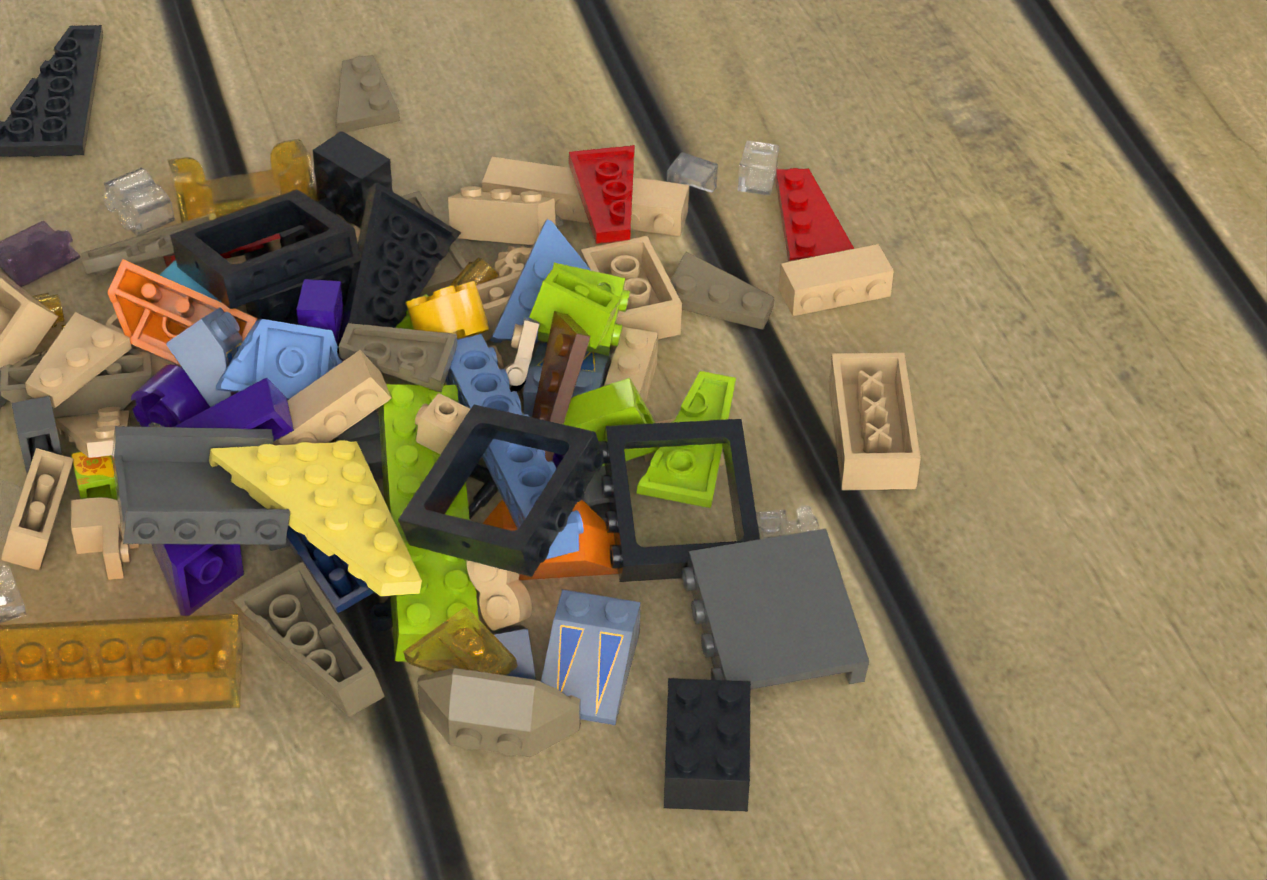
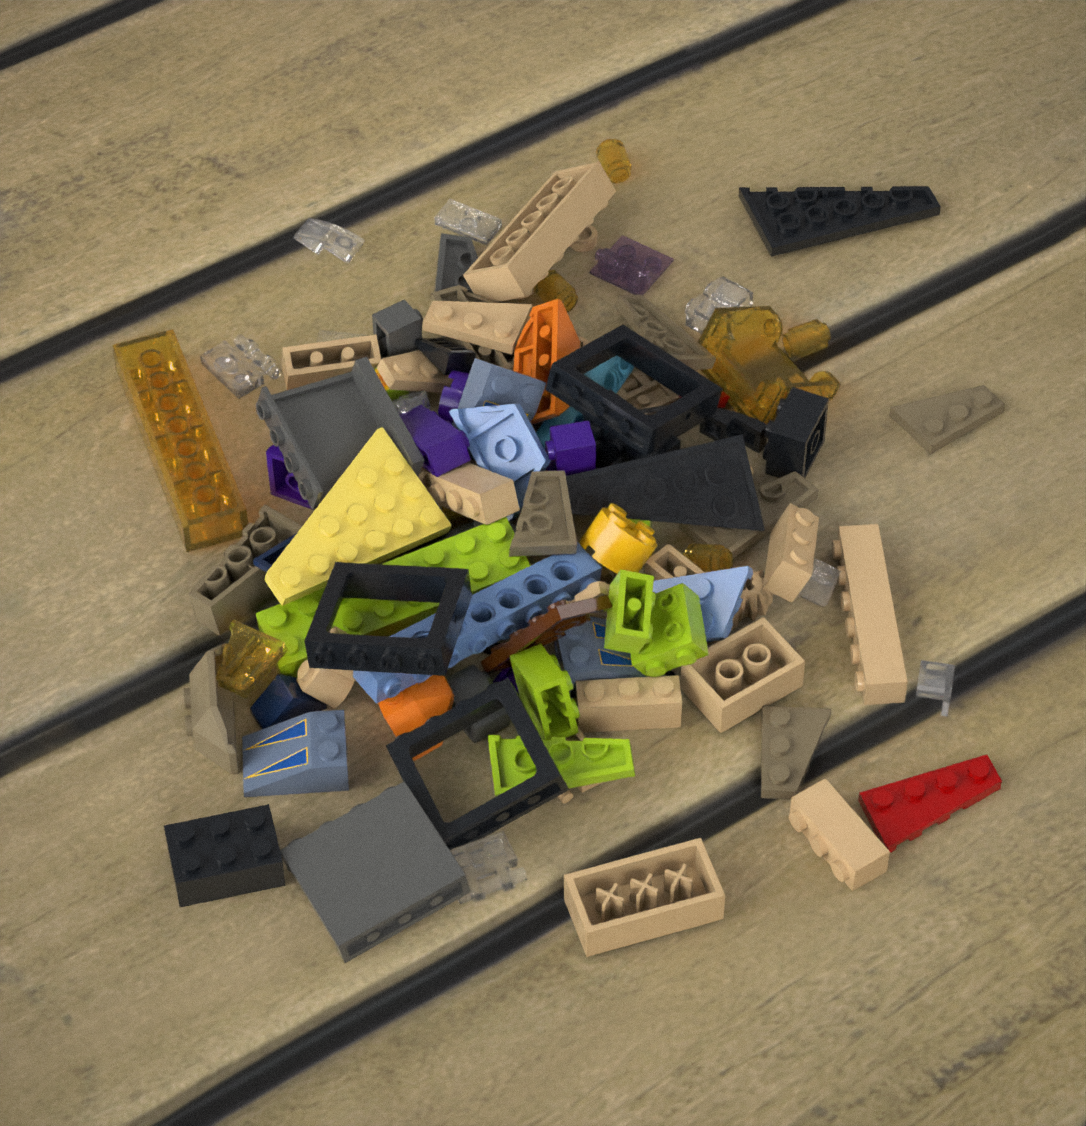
camera: 75 degrees right, 5 degrees up
(97, 401) = (446, 354): none -> black slope
(216, 154) = (806, 338): none -> clear yellow brick
(439, 422) = (463, 555): tan brick -> none
(605, 190) = (855, 613): red wing -> none
(758, 167) = (978, 736): clear panel -> none

